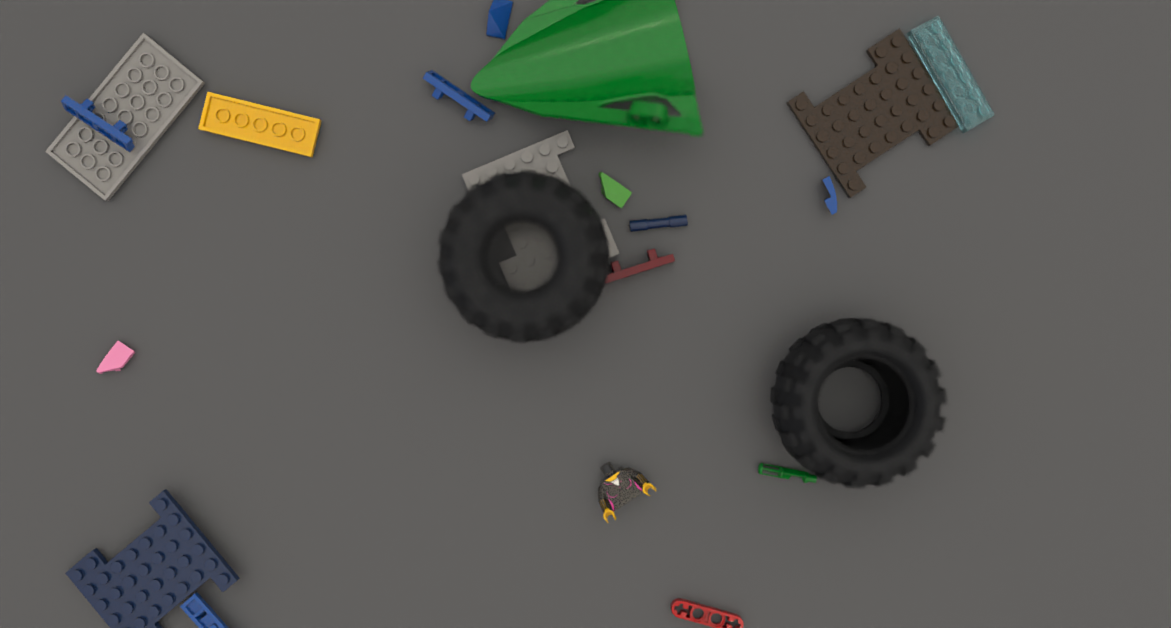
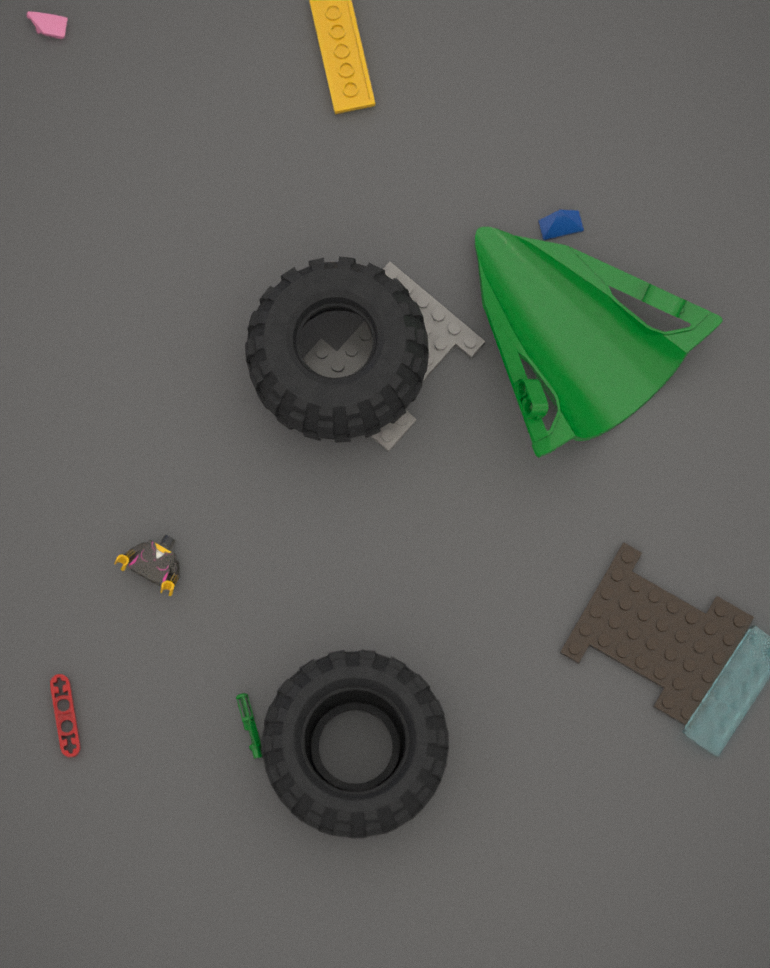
camera: 60 degrees right, 10 degrees down
(444, 86) = (466, 206): blue hinge -> none
(613, 190) = (448, 414): bright green slope -> none
(645, 224) = (431, 463): dark blue piece -> none
(653, 263) = (396, 487): dark red hinge -> none
(831, 202) = (546, 633): blue slope -> none

